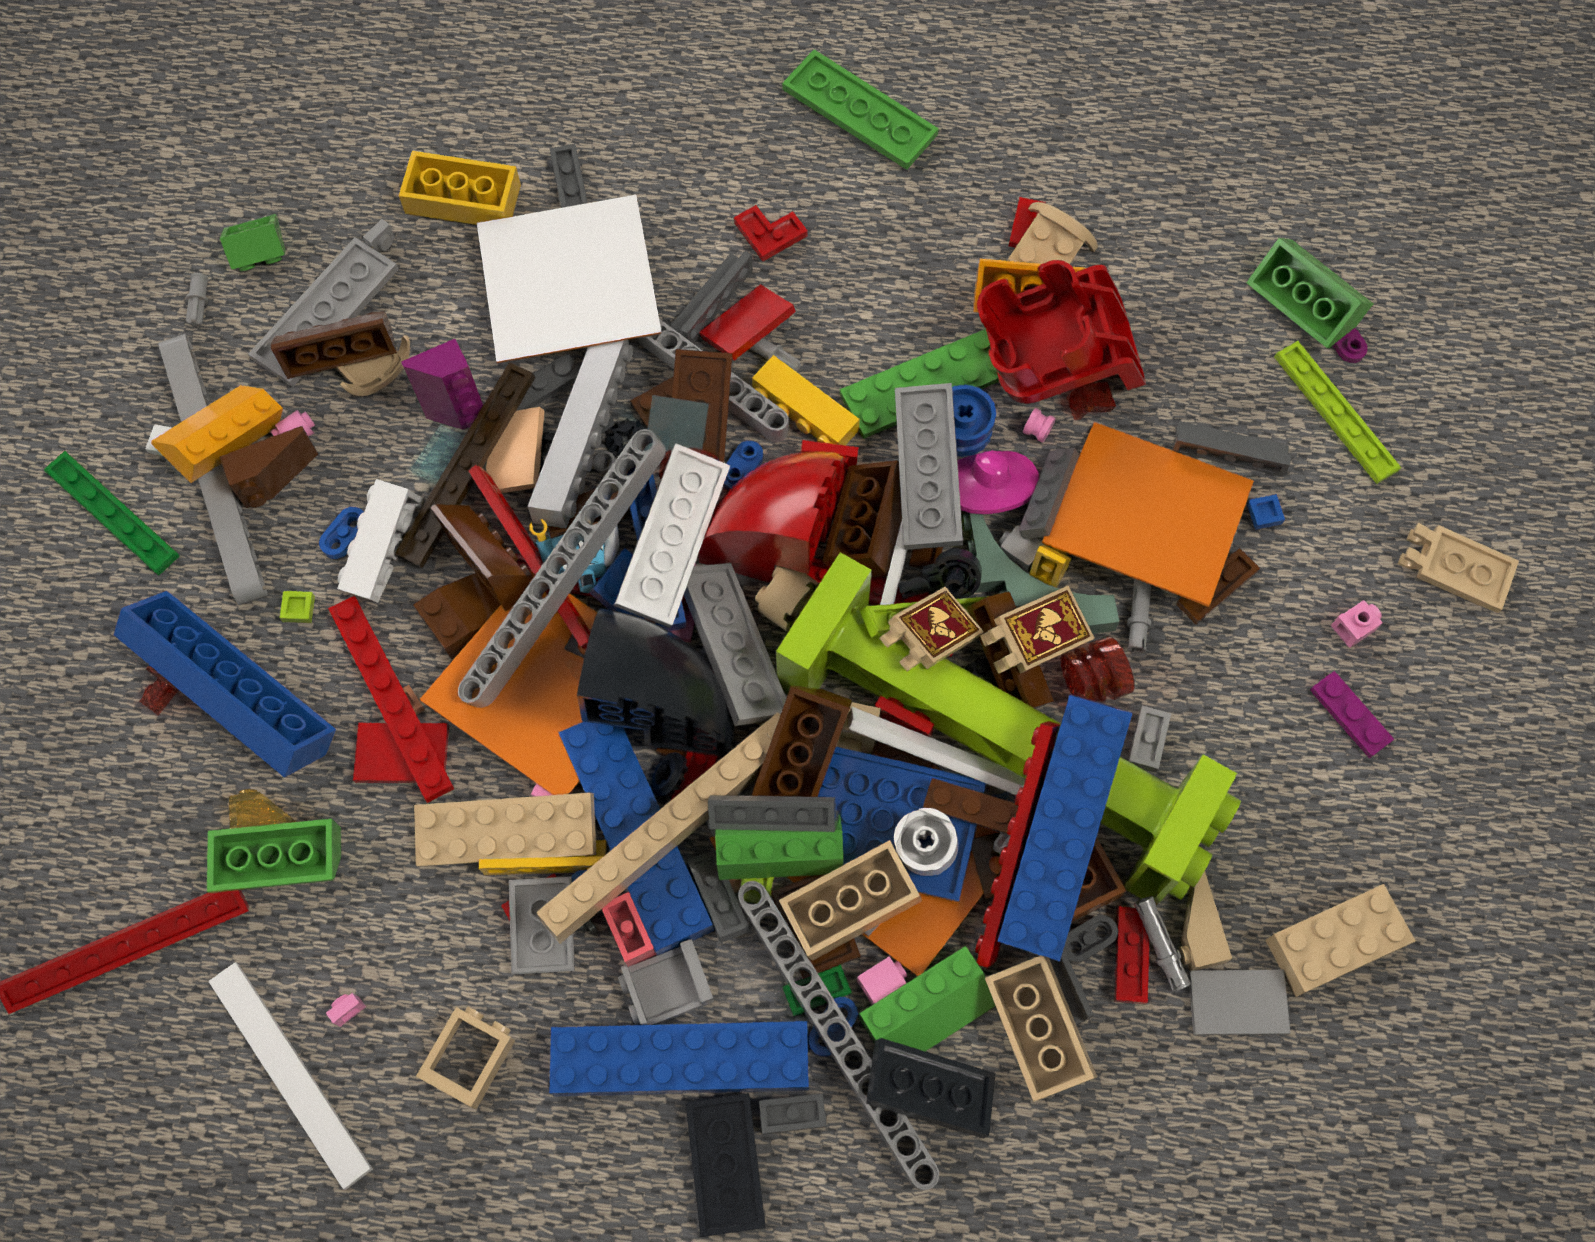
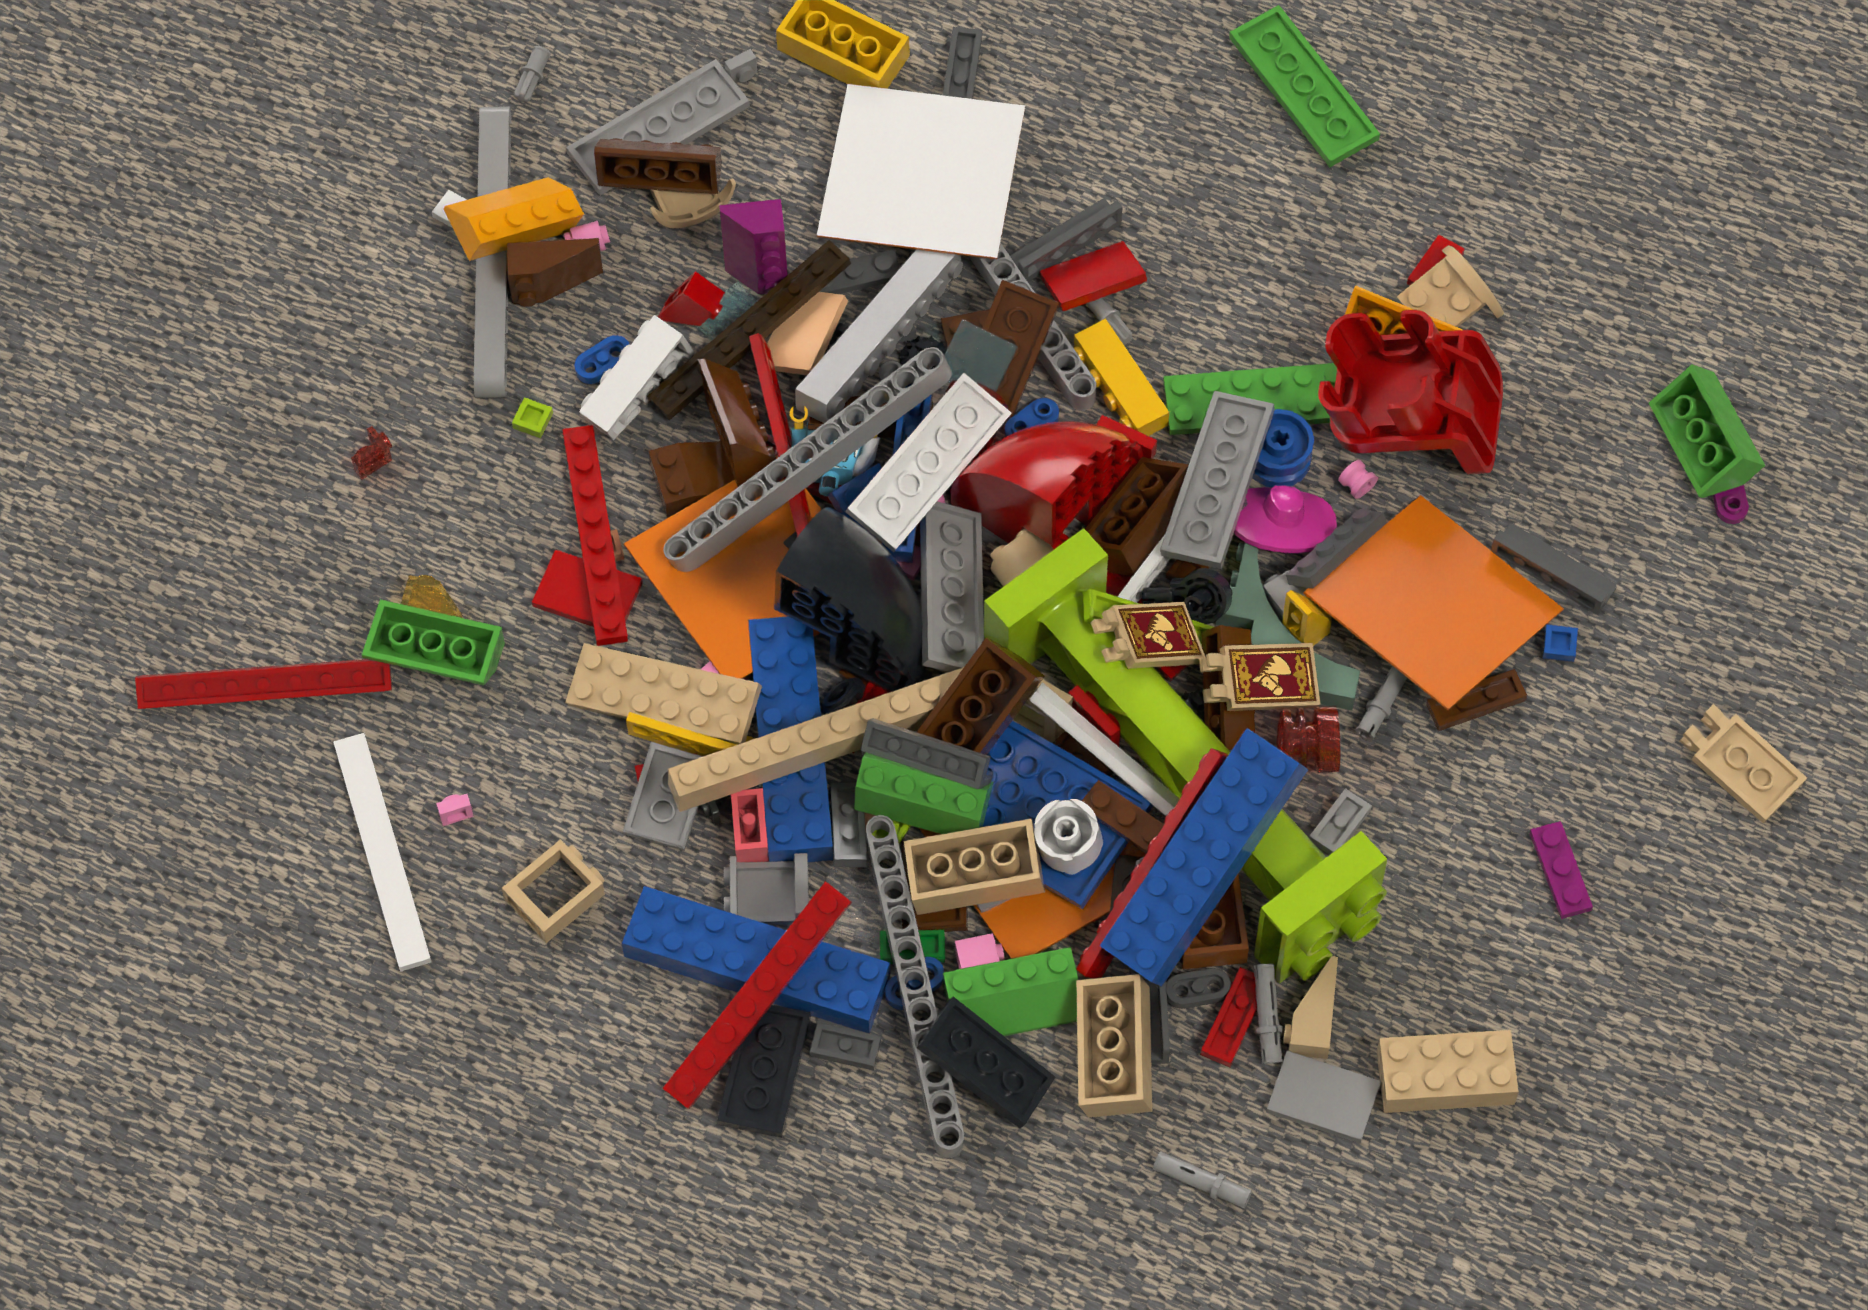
camera: 20 degrees right, 5 degrees down
(112, 513) = (377, 266): green tile -> none
(224, 683) = (439, 466): blue brick -> none
(253, 243) = (609, 32): bright green slope -> none
(407, 455) = (693, 302): none -> red slope
(696, 1102) = (757, 995): none -> red plate
(769, 238) = (1153, 195): red plate -> none
(1090, 398) = (1425, 469): clear red bracket -> none
(1167, 1126) = (1203, 1180): none -> light grey pin
(1337, 412) = (1685, 567): lime tile -> none
(1352, 629) = (1602, 791): bright pink brick -> none

